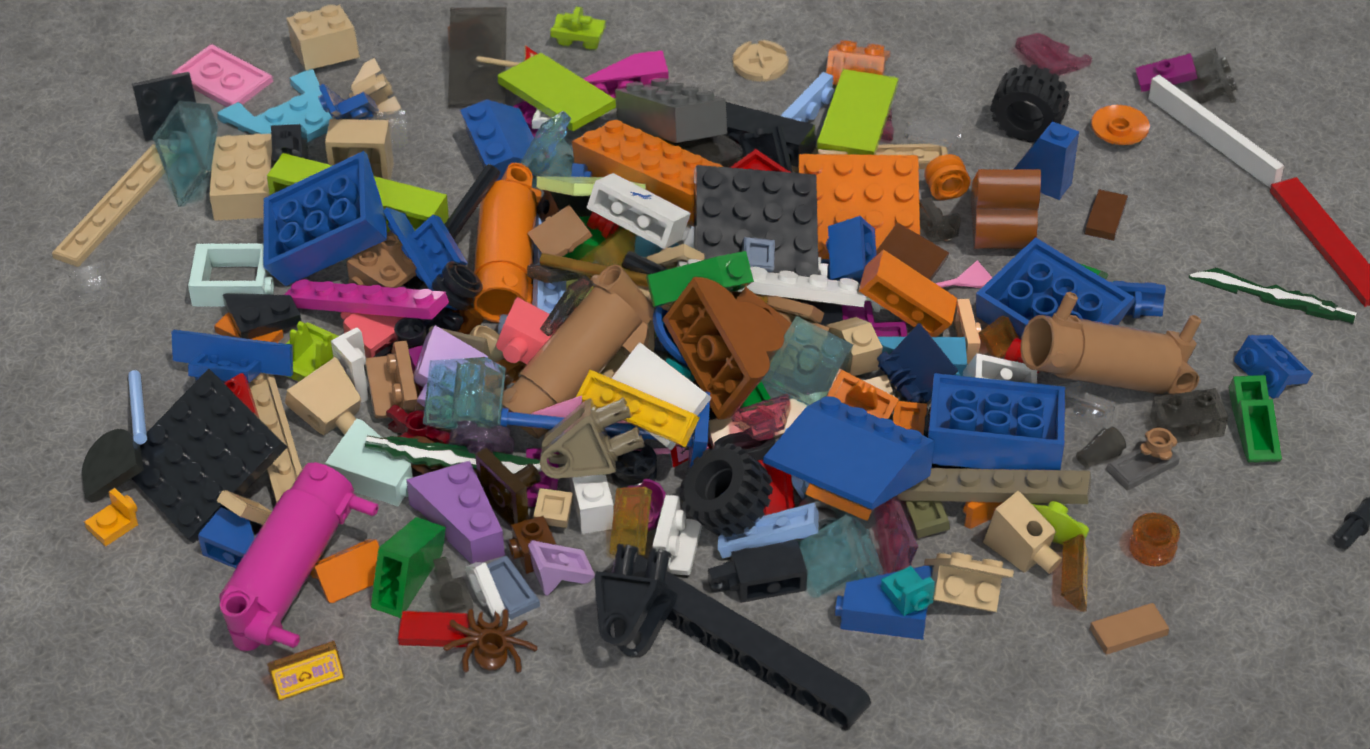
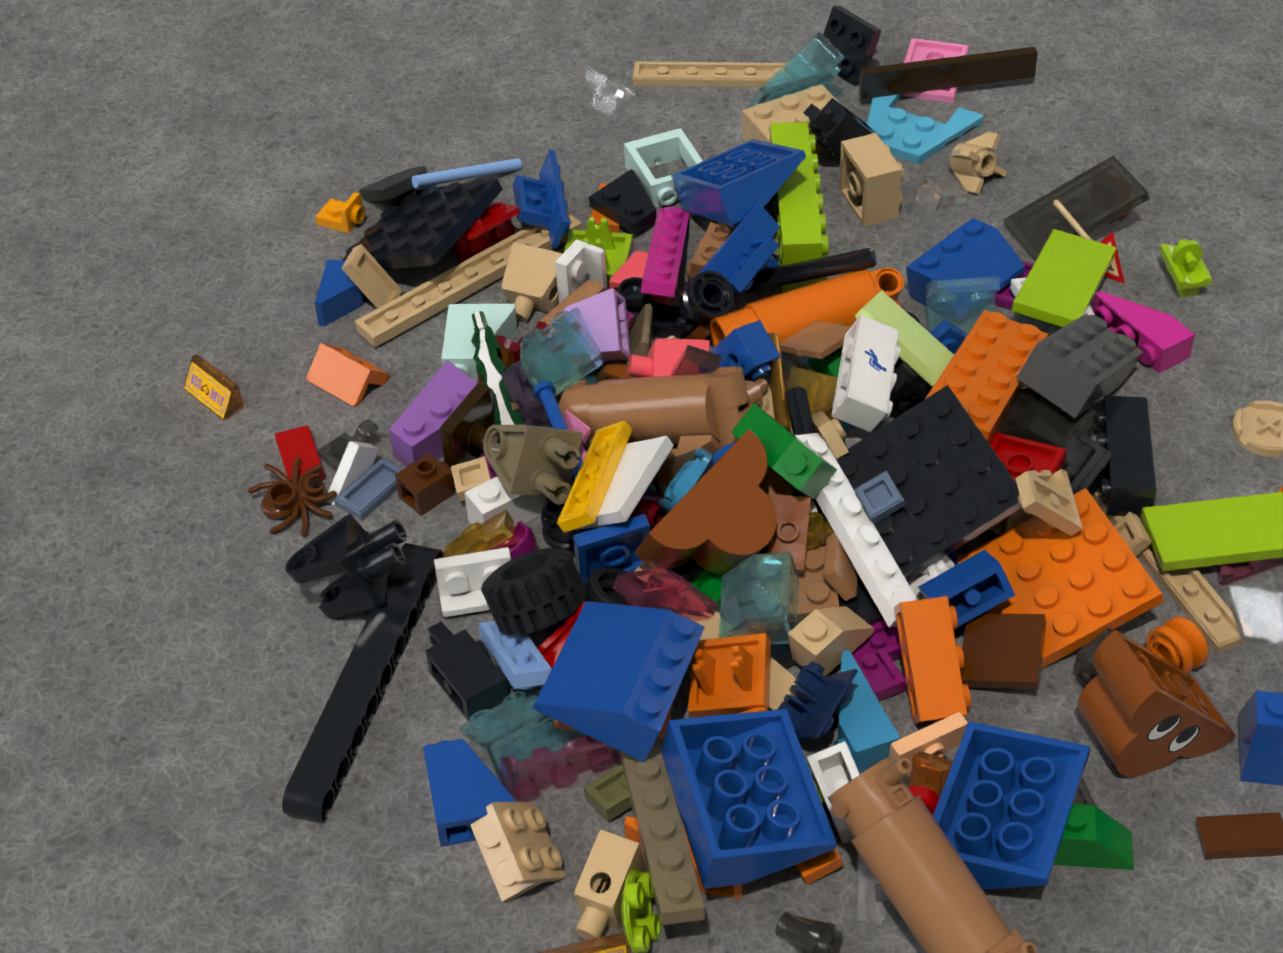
camera: 70 degrees right, 0 degrees up
(252, 64) = (947, 72): none -> dark brown tile
(285, 555) = (312, 314): dark pink piece -> none
(322, 37) = (1022, 101): tan brick -> none
(355, 108) = (901, 133): blue bracket -> none
(405, 565) = (356, 396): green slope -> none
(559, 563) = (395, 499): lavender slope -> none
(560, 269) = (750, 349): none -> blue brick
(675, 349) = (685, 479): none -> dark azure tile
(812, 99) = (1204, 484): light blue plate -> none
(819, 171) = (1050, 499): none -> tan wing
(908, 590) = (463, 793): teal bracket -> none
(974, 277) = (1023, 722): bright pink piece -> none
(1148, 298) = (1092, 903): blue hips -> none

